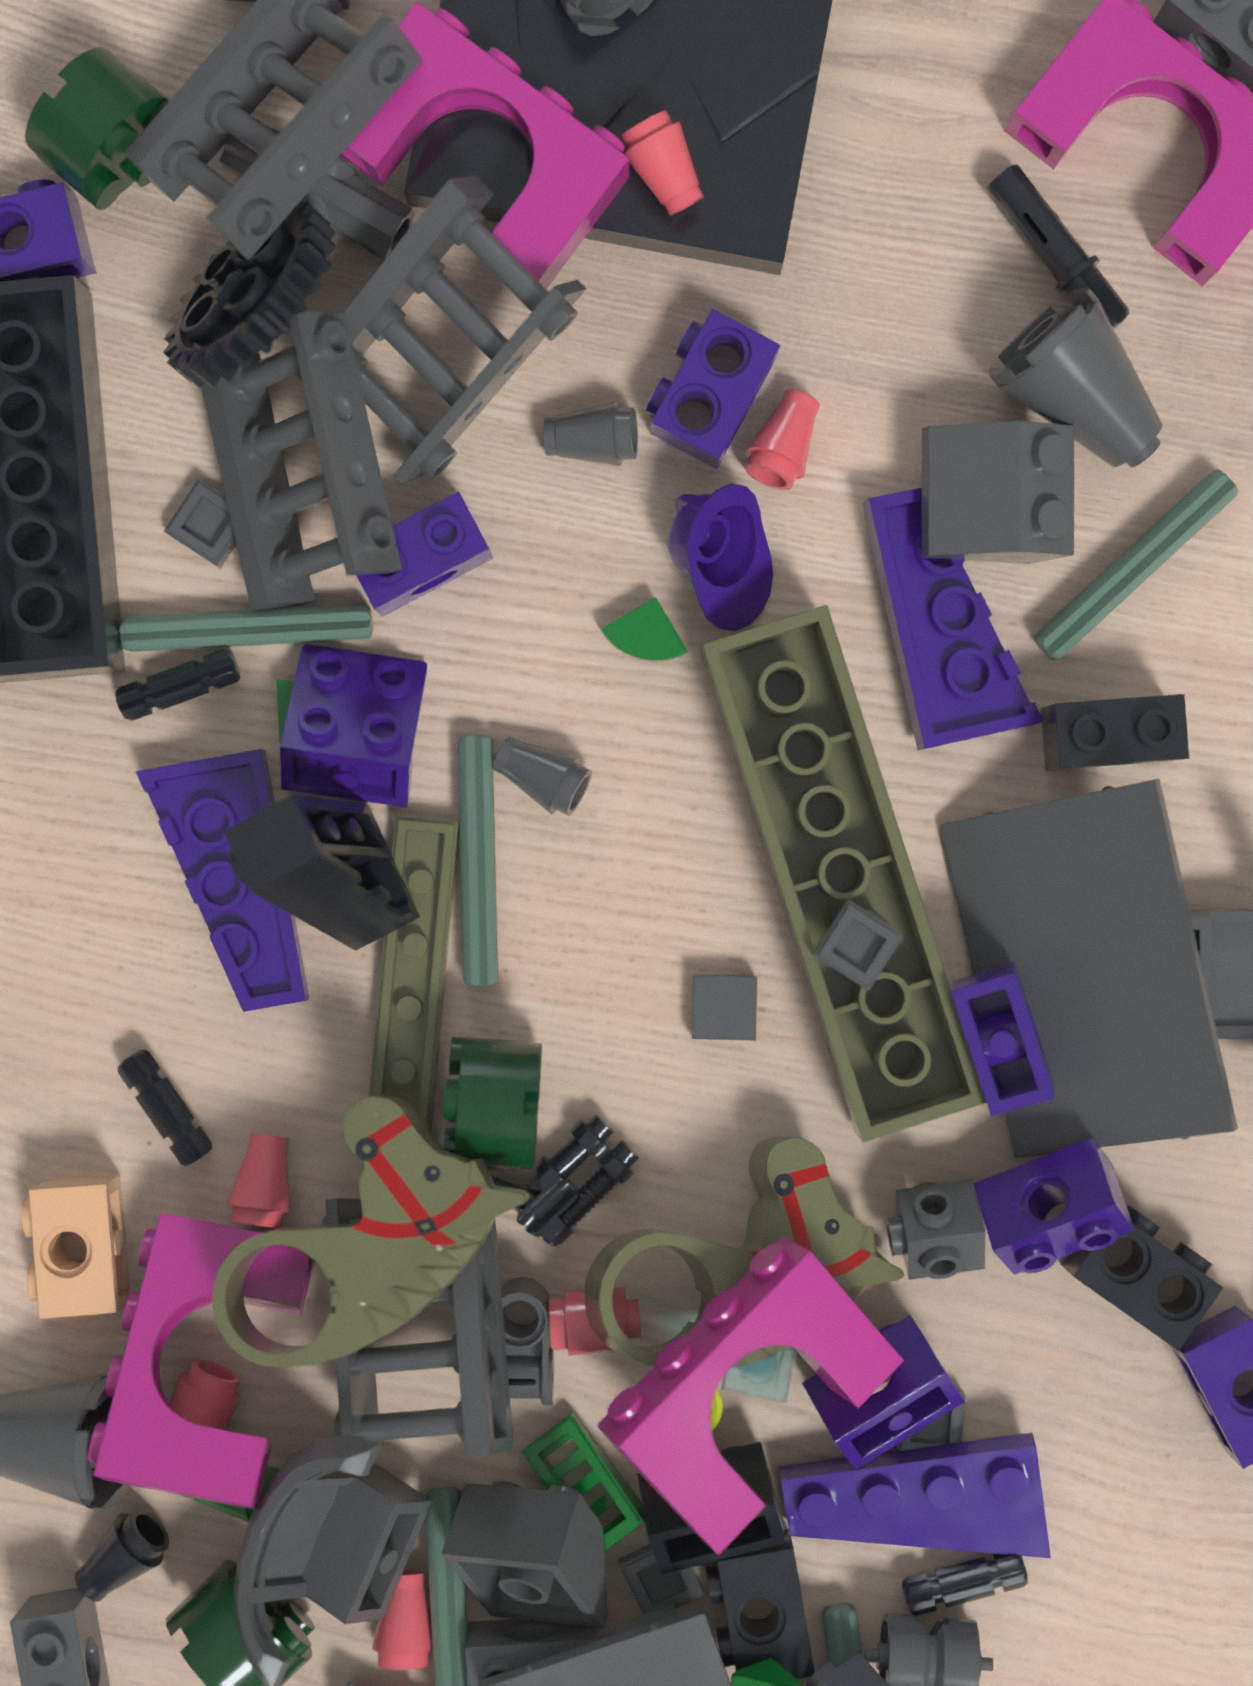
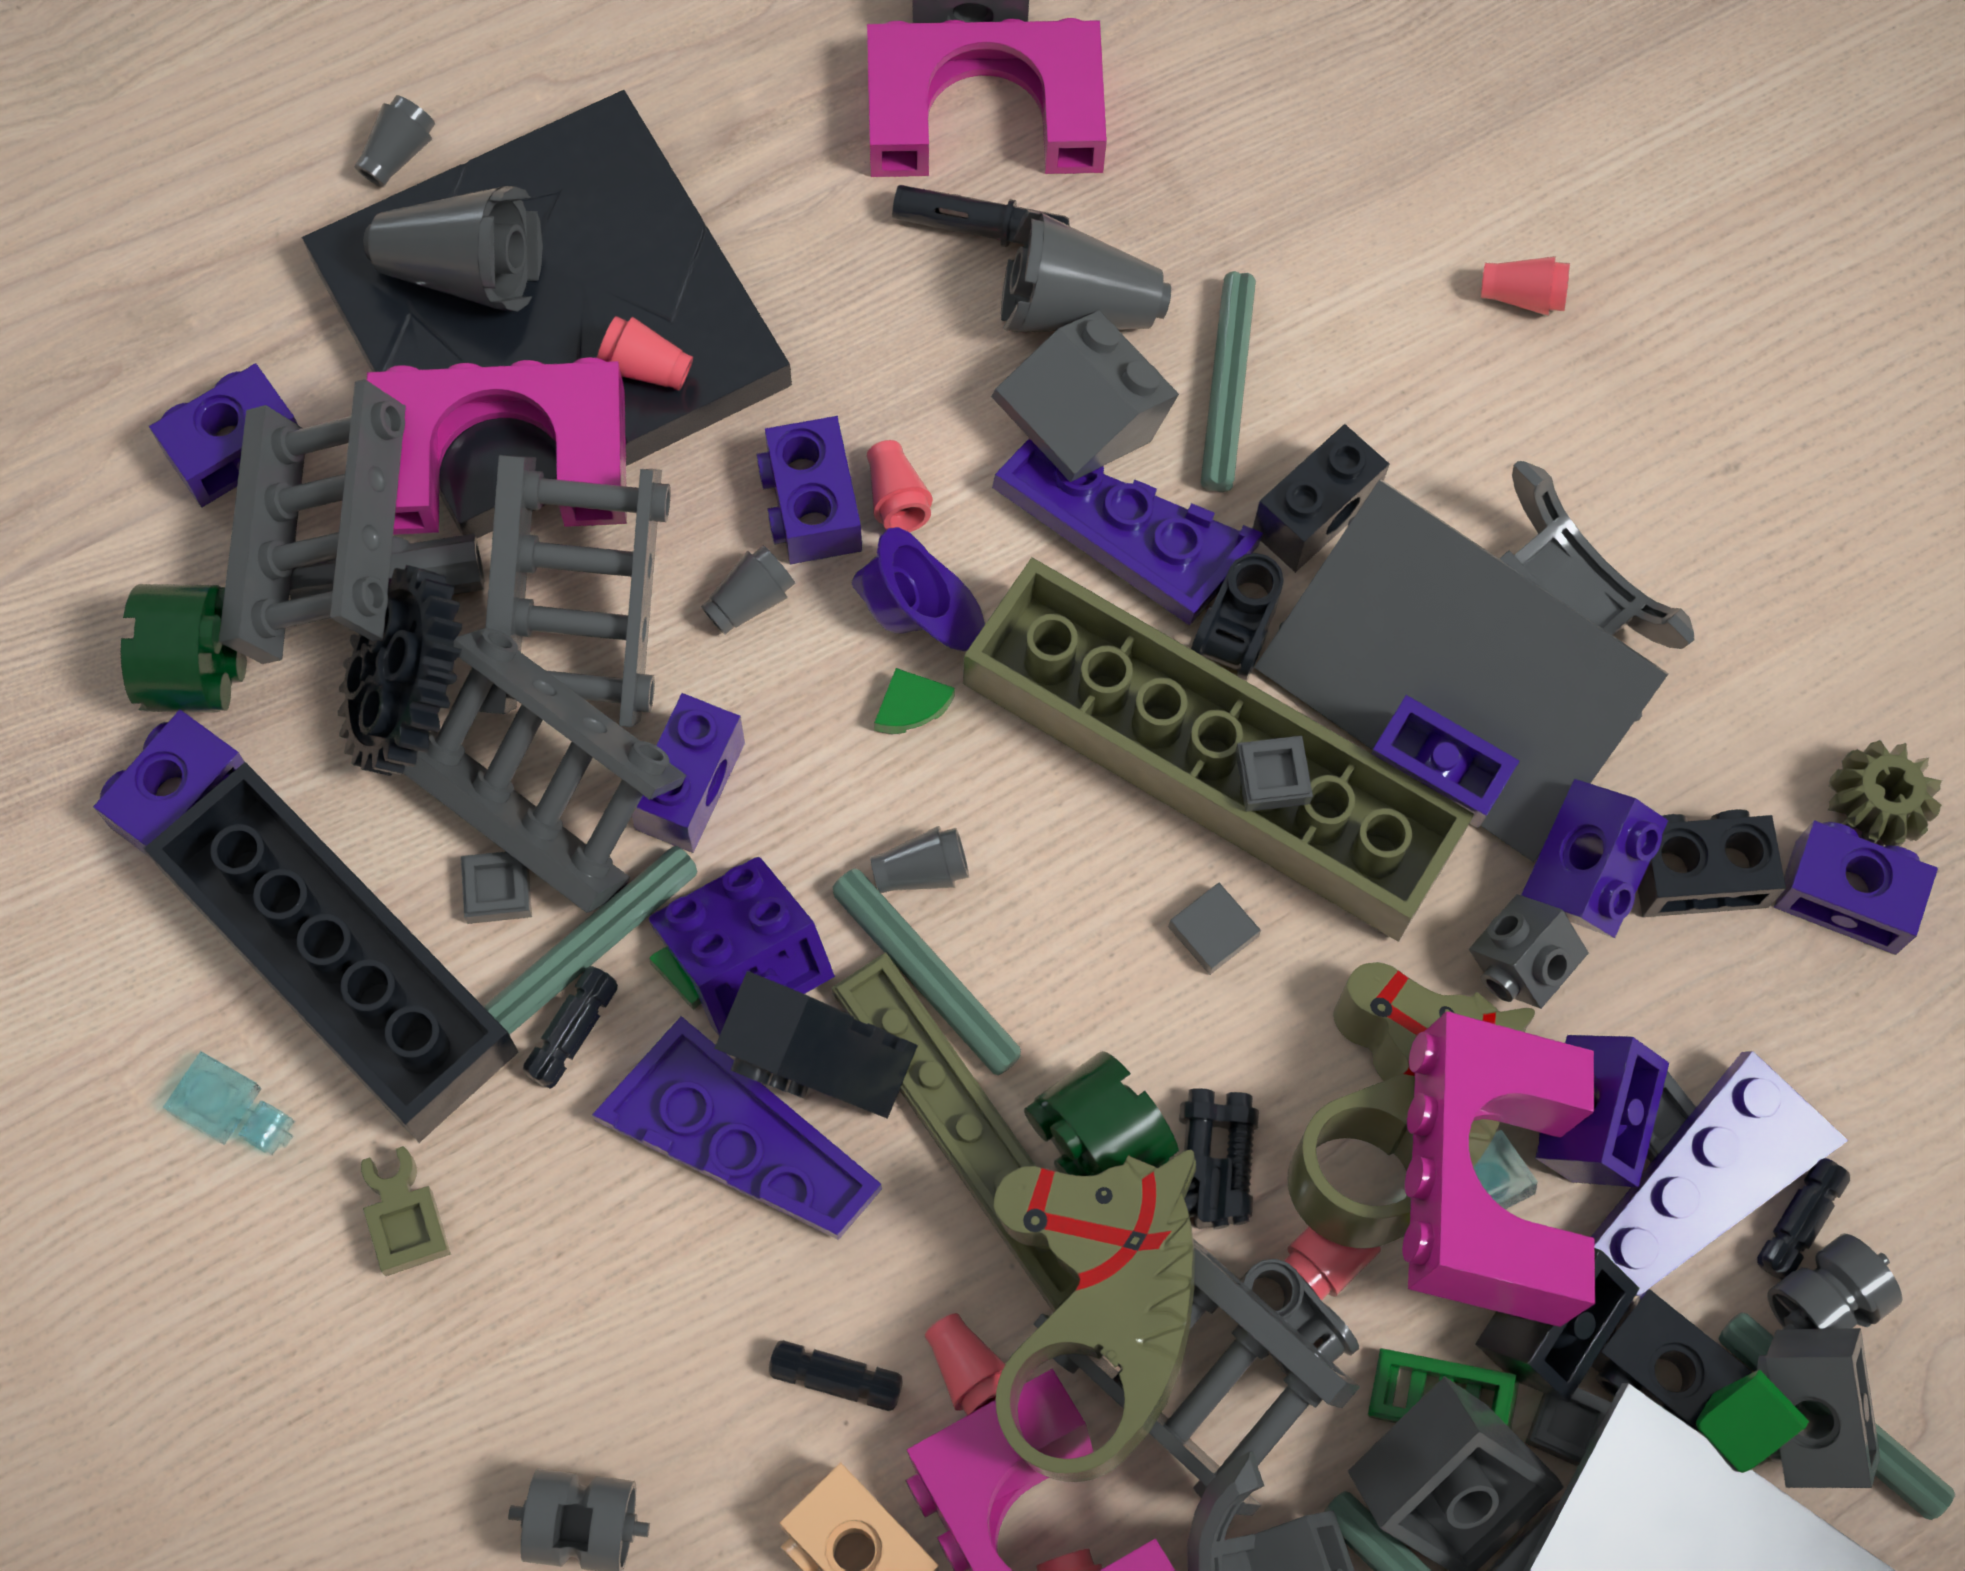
camera: 45 degrees left, 20 degrees down
(957, 782) = (1238, 625): none -> black piece

